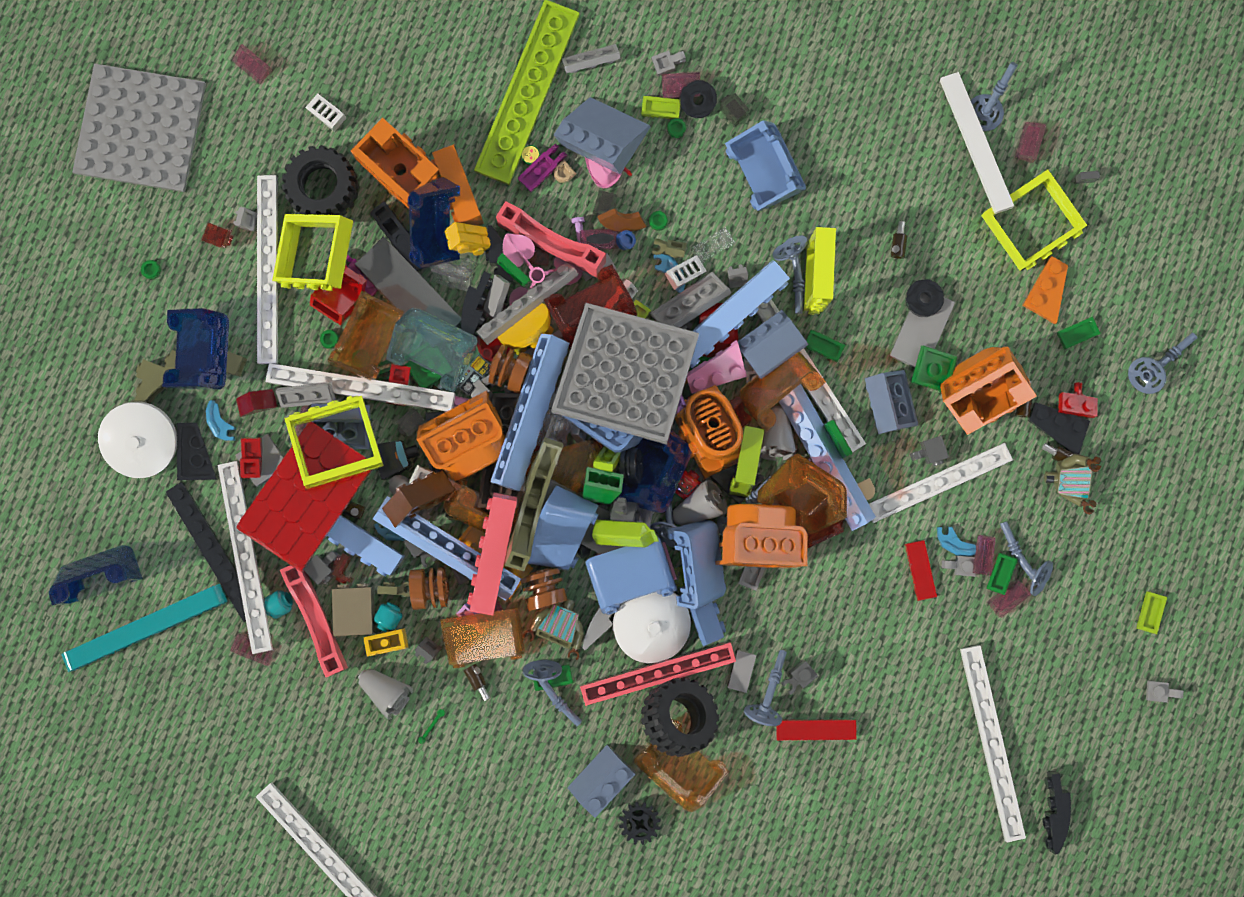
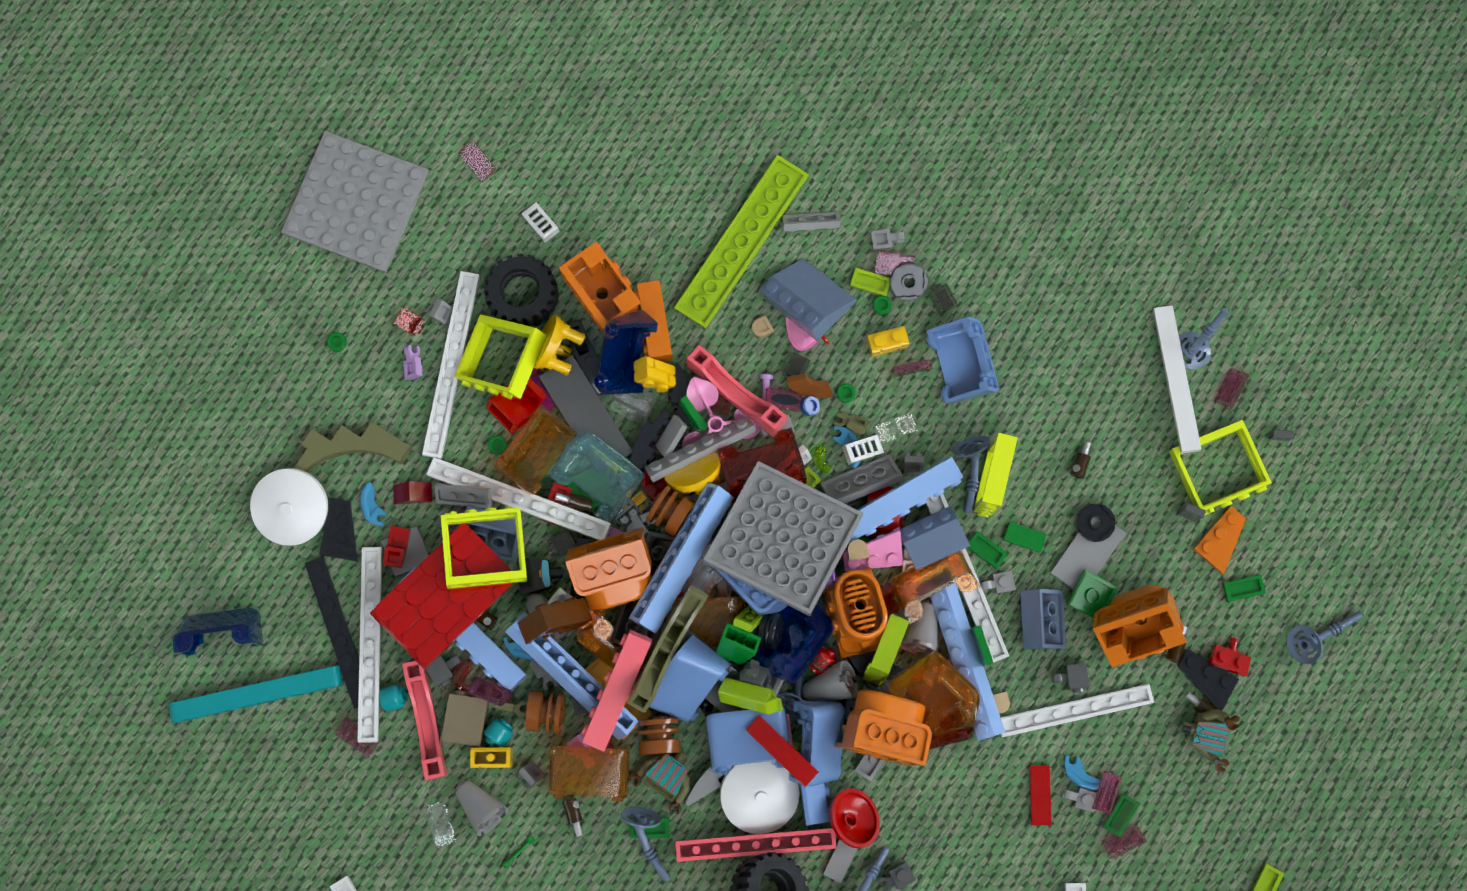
camera: 10 degrees right, 5 degrees down
(199, 349) = (369, 430): clear blue windscreen -> none
(229, 277) = (412, 365): none -> lavender plate
(349, 715) = (440, 824): none -> clear slope
(362, 215) = (556, 332): none -> yellow piece
(371, 579) = (490, 692): none -> clear pink slope
(416, 379) = (576, 502): none -> dark brown piece
(530, 154) = (733, 305): light yellow tile -> none
(541, 168) = (740, 319): magenta hinge -> none
(645, 289) = (819, 458): none -> clear neon green arm
(665, 580) = (782, 750): none -> red slope
(689, 161) = (887, 341): none -> yellow brick
(700, 370) = (858, 550): none -> tan tile
(718, 183) = (911, 368): none -> clear pink tile
(747, 629) = (854, 818): none -> red dish
(843, 374) = (1001, 583): none -> light grey plate
(858, 326) = (1024, 537): none -> green tile
(1015, 269) = (1191, 512): none -> dark grey tile
(1038, 577) = (1156, 824): sand blue dish -> none

